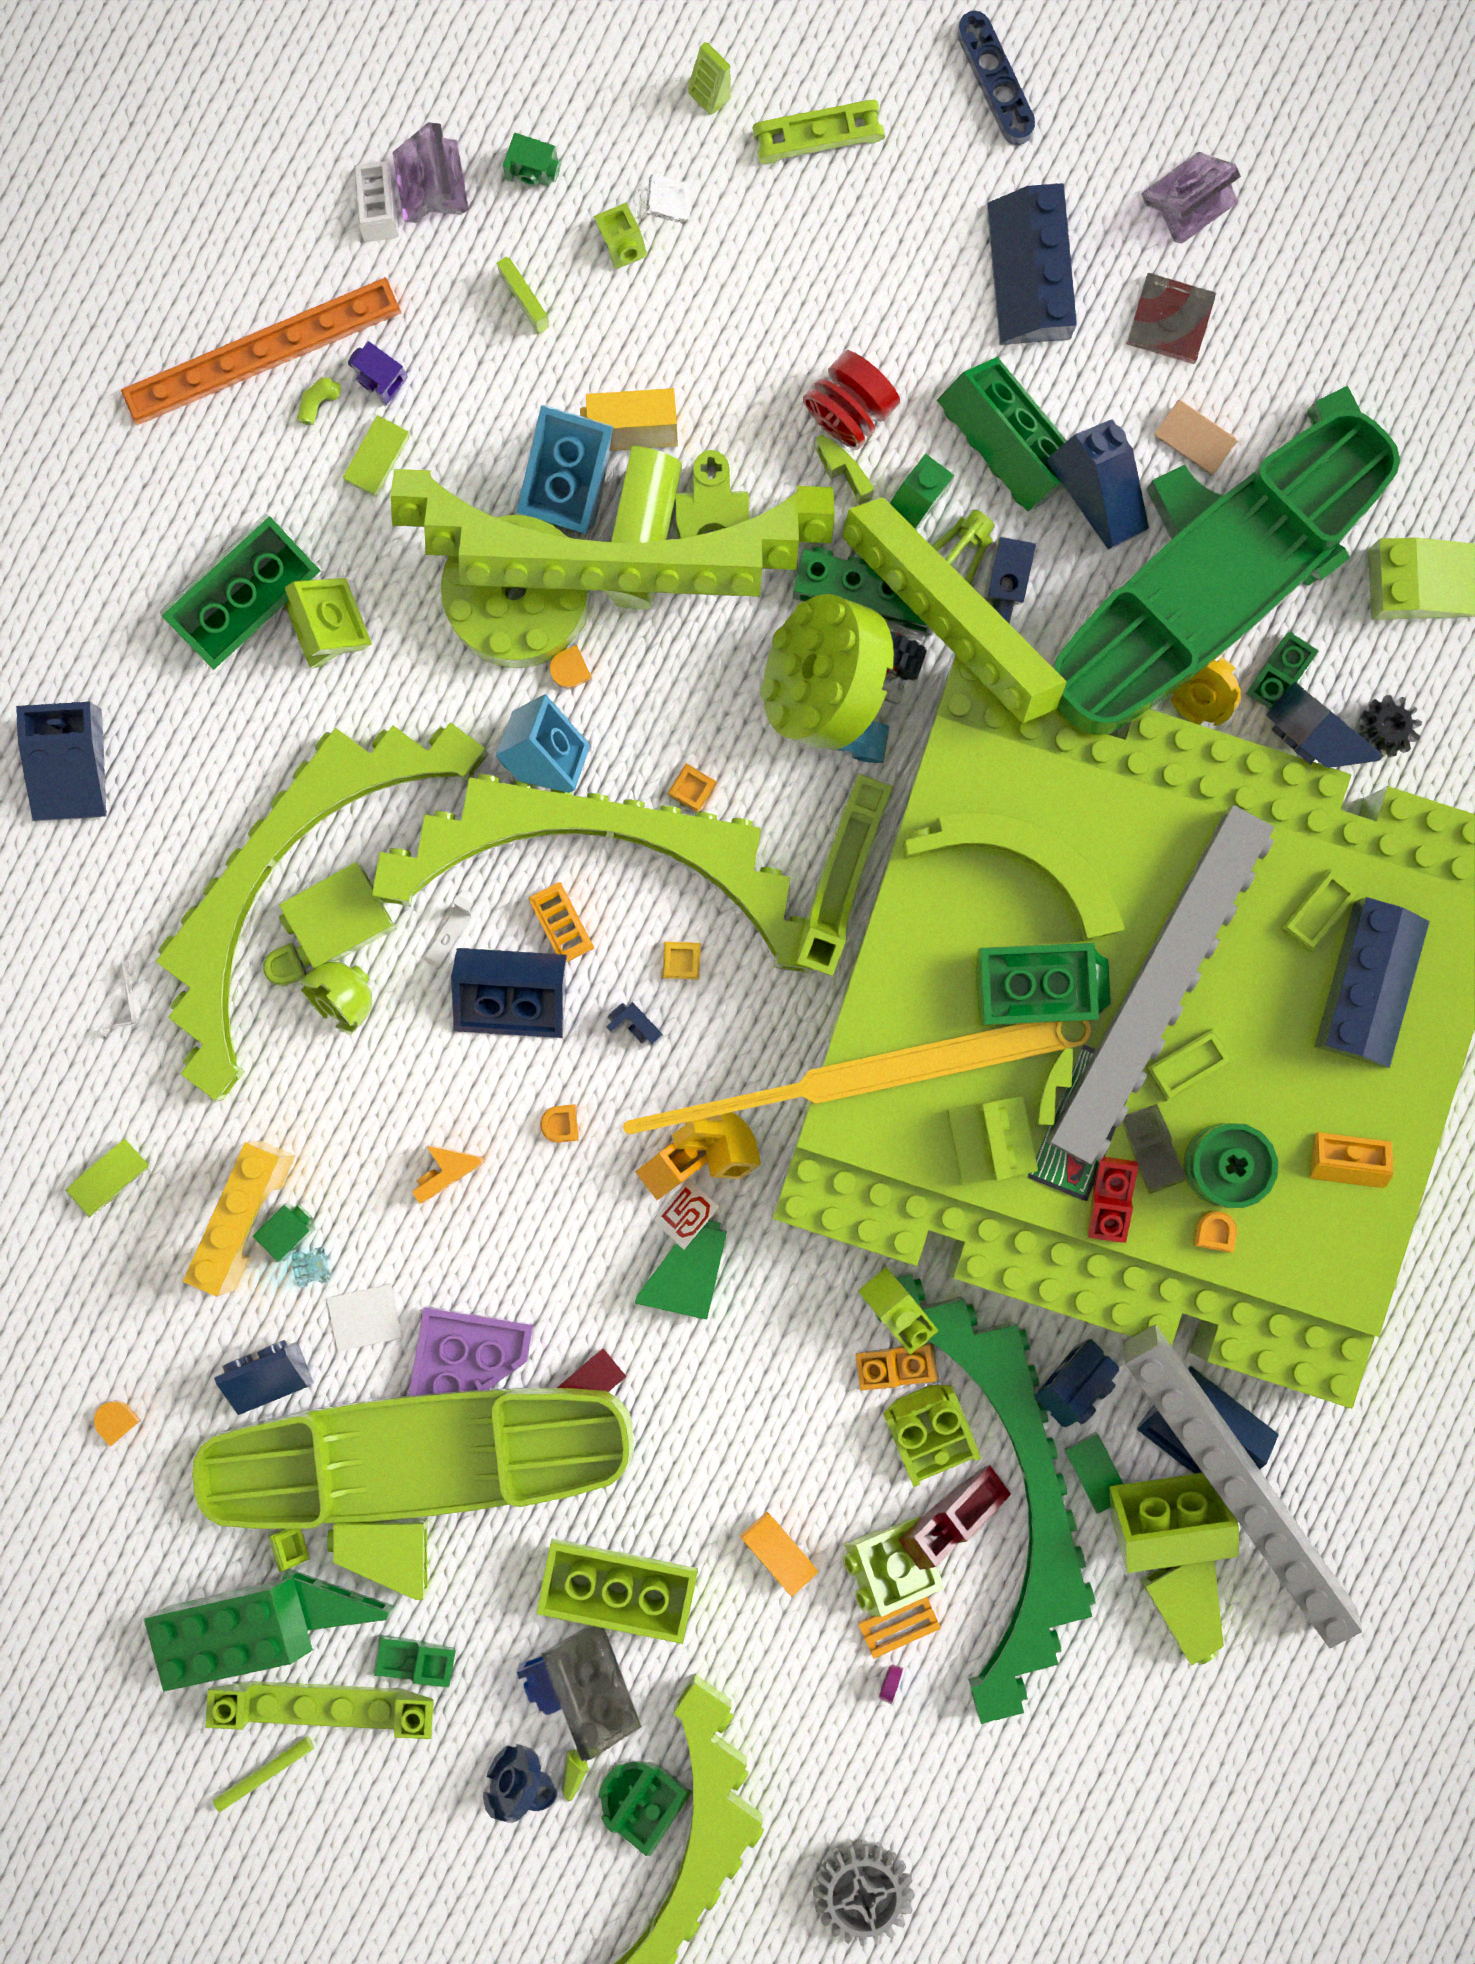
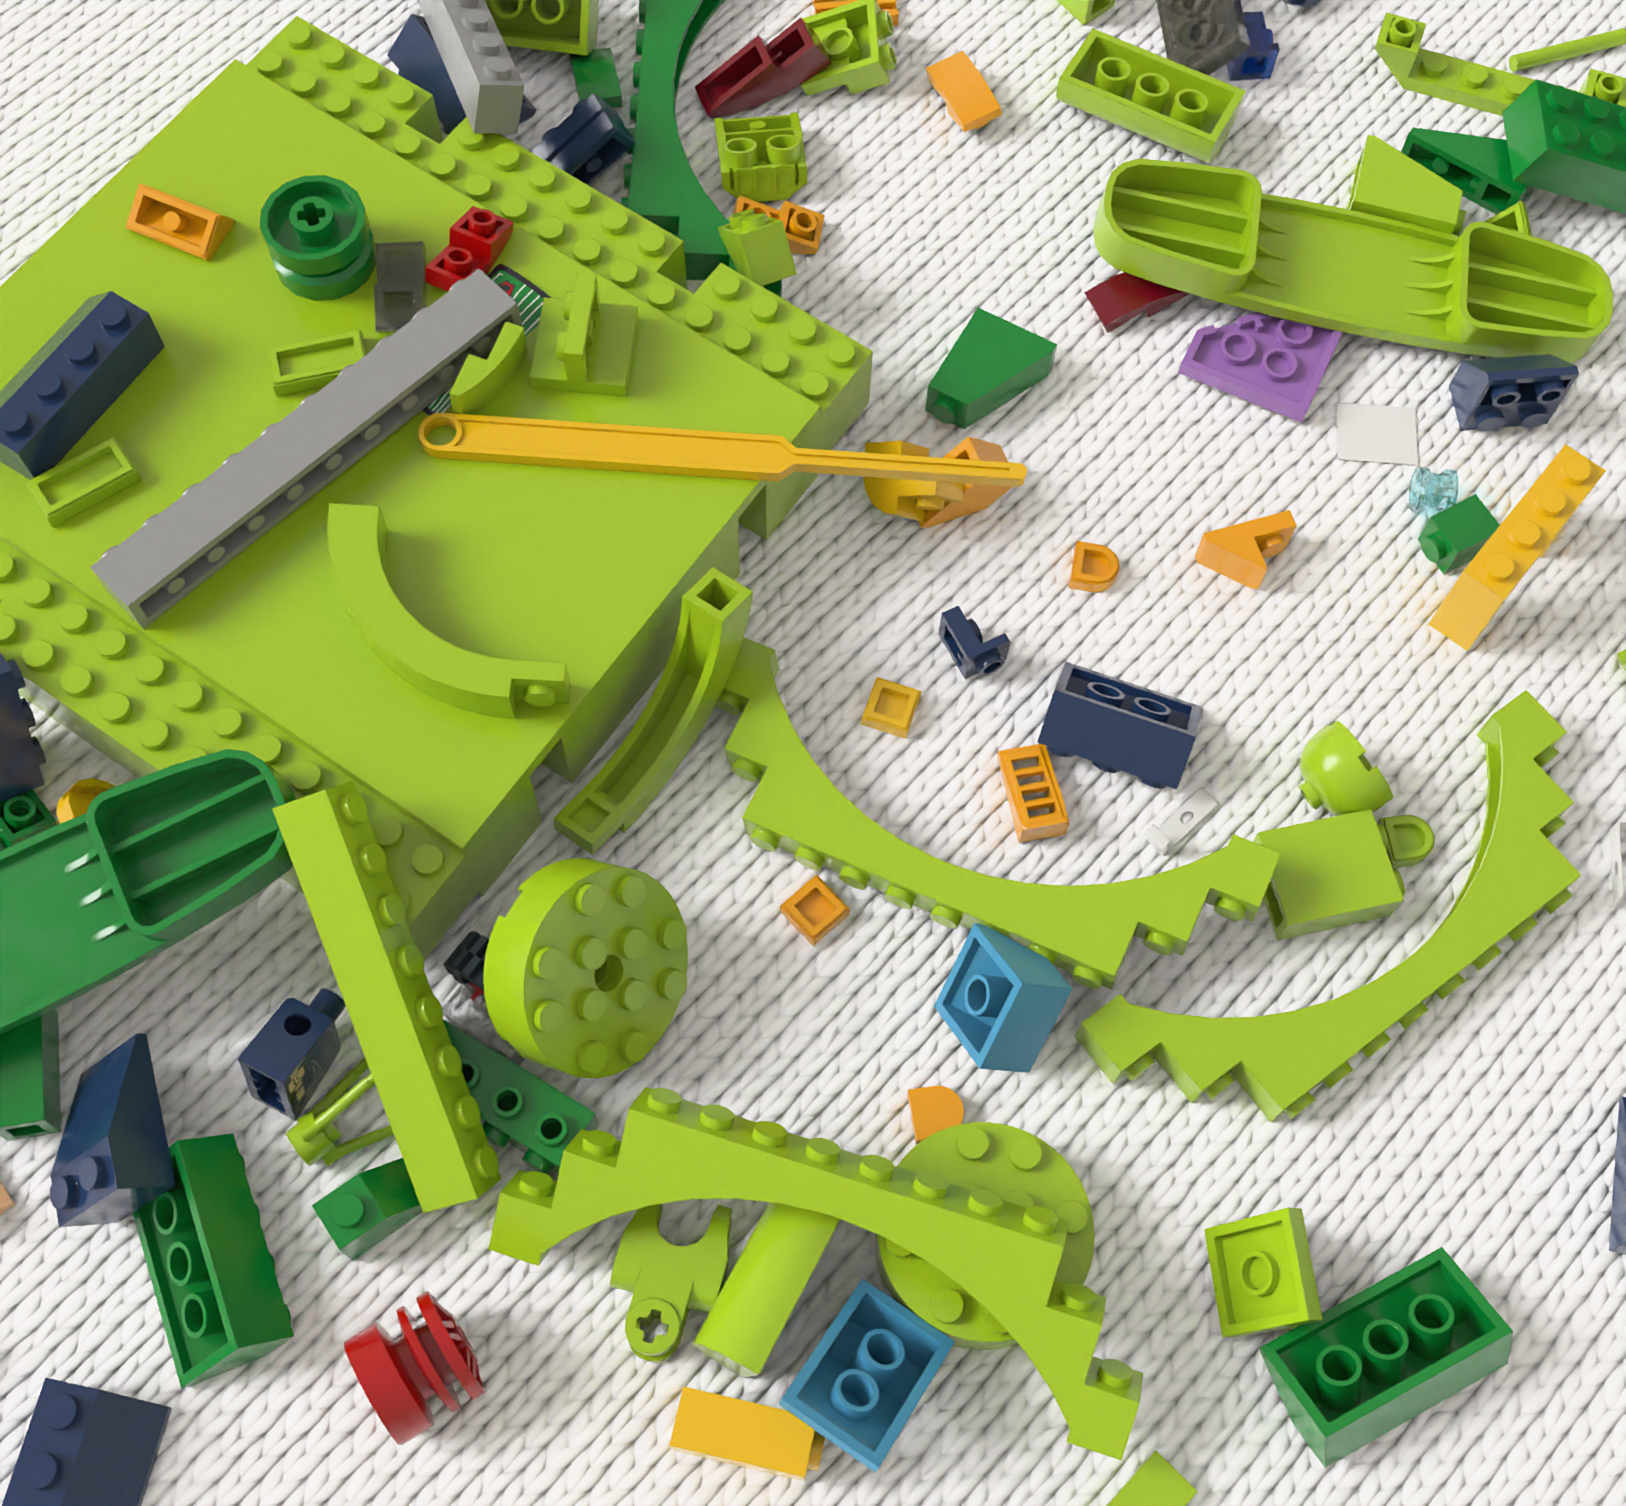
camera: 165 degrees left, 20 degrees down
(414, 1660) = (1375, 100): green slope -> none
(686, 1213) = (969, 412): white sticker -> none
(838, 462) = (468, 1289): lime slope -> none
(1041, 983) = (462, 481): green slope -> none
(1216, 1231) = (374, 190): light orange tile -> none

